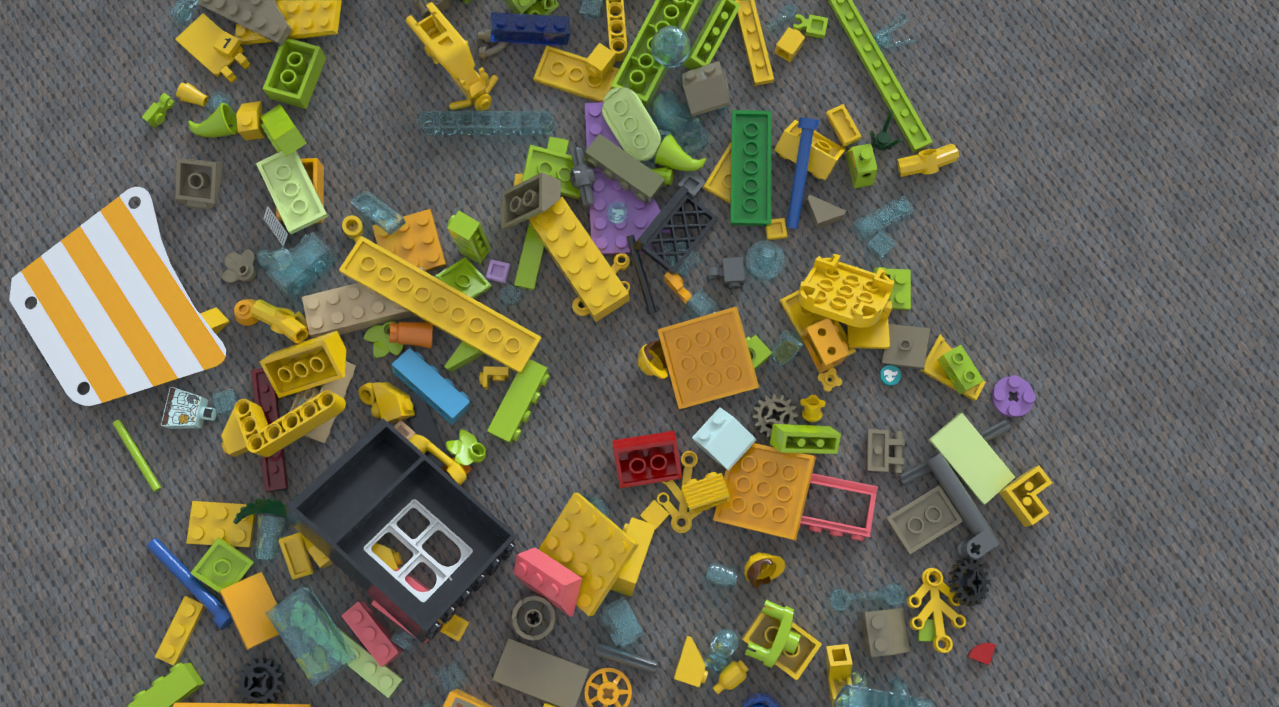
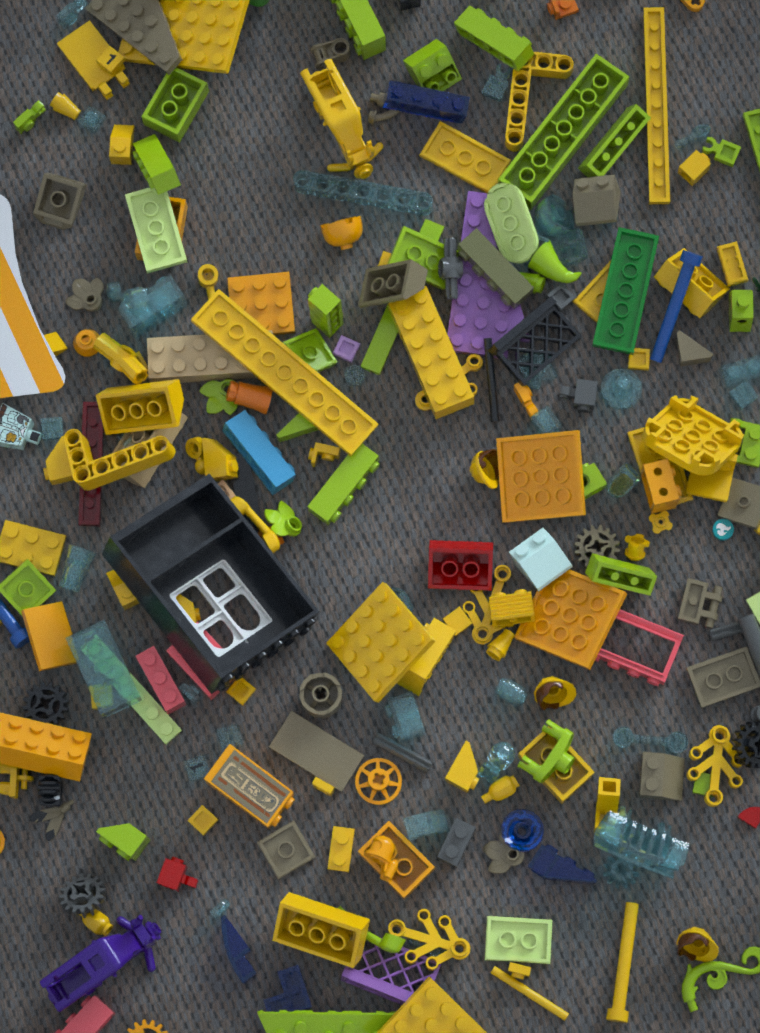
camera: 15 degrees right, 0 degrees up
(217, 123) = (87, 143): lime hat -> none
(267, 506) = (84, 539): dark green plant -> none
(275, 226) = (129, 260): white sticker -> none
(296, 556) = (99, 592): yellow tile -> none
(378, 212) = (236, 265): clear light blue plate -> none
(474, 162) = (343, 232): none -> light orange cylinder
(548, 579) = (341, 659): coral slope -> none
(600, 61) = (492, 150): yellow brick -> none
(617, 212) = (479, 311): clear light blue tile -> none
(670, 46) = (567, 150): clear light blue cylinder -> none
(700, 532) = (499, 646): none -> yellow cone

